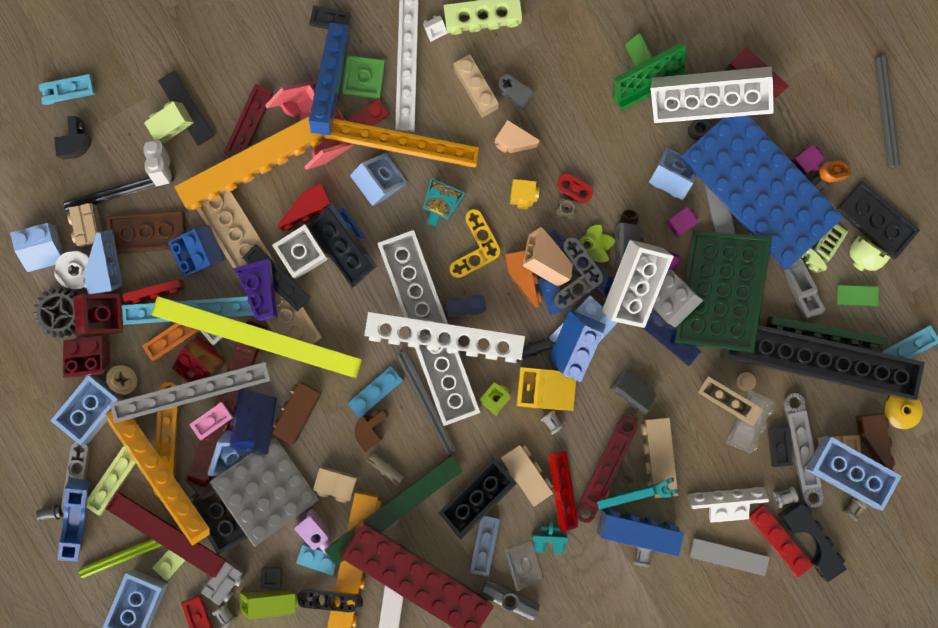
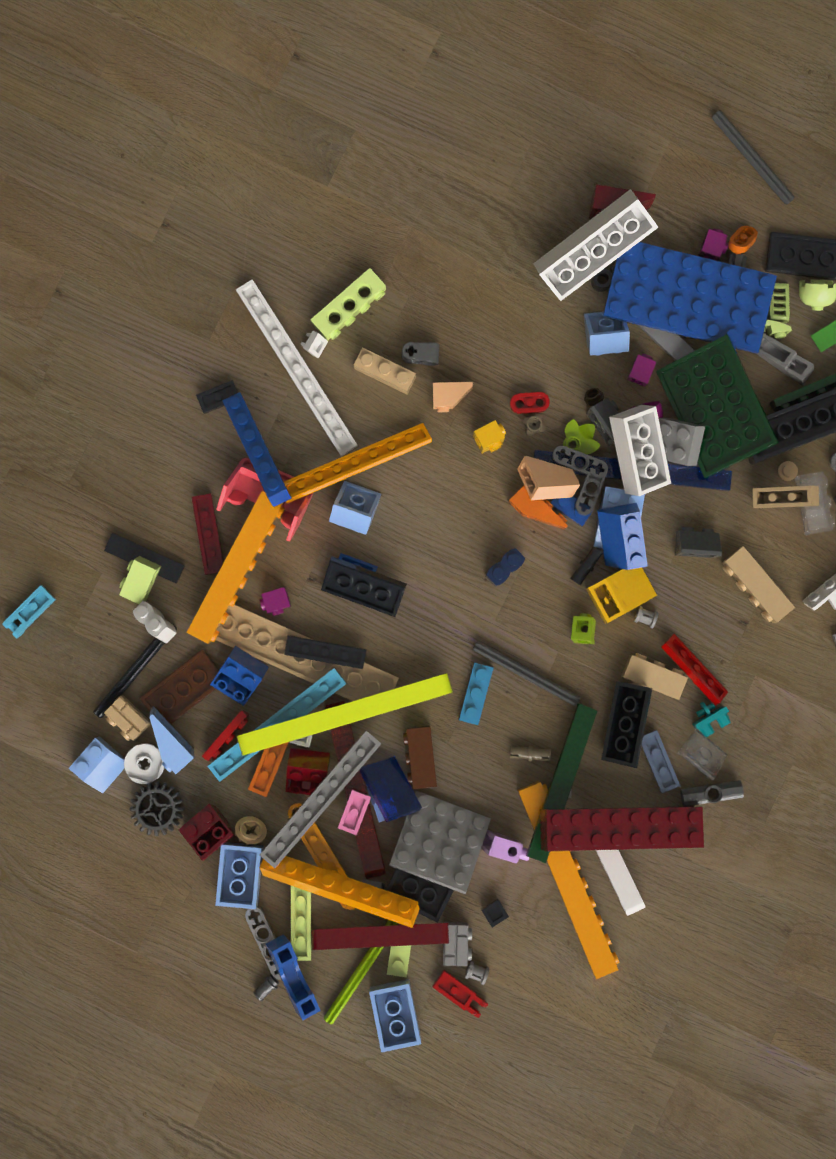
camera: 35 degrees left, 0 degrees up
(74, 144) = (70, 652): black brick -> none
(98, 314) = (193, 787): dark red brick -> none
(225, 456) = (386, 833): light blue slope -> none
(259, 287) = (317, 669): dark purple wing -> none
(265, 211) = (275, 601): none -> magenta brick
(267, 603) = (506, 937): lime slope -> none
(300, 252) = (330, 616): white brick -> none
(309, 204) = (309, 570): red slope -> none
(315, 560) = (523, 871): medium azure plate -> none
(329, 603) = (560, 898): black beam -> none
(335, 484) = (496, 795): tan brick -> none
(363, 77) = (281, 428): bright green plate -> none
(365, 432) = (490, 733): reddish brown brick -> none
(370, 114) = (309, 457): red plate -> none
(376, 321) = (570, 570): white brick -> none
(420, 302) = (486, 607): white brick -> none
(441, 201) = (422, 491): torso -> none
(481, 252) = (486, 511): yellow beam -> none
(606, 468) = (719, 626): dark red plate -> none
(630, 93) = (524, 276): green fence -> none
(638, 50) = (509, 249): bright green slope -> none
(639, 532) = (783, 661): blue brick -> none
(643, 557) = (799, 678): light grey bush -> none
(658, 488) = (774, 612): teal tile -> none

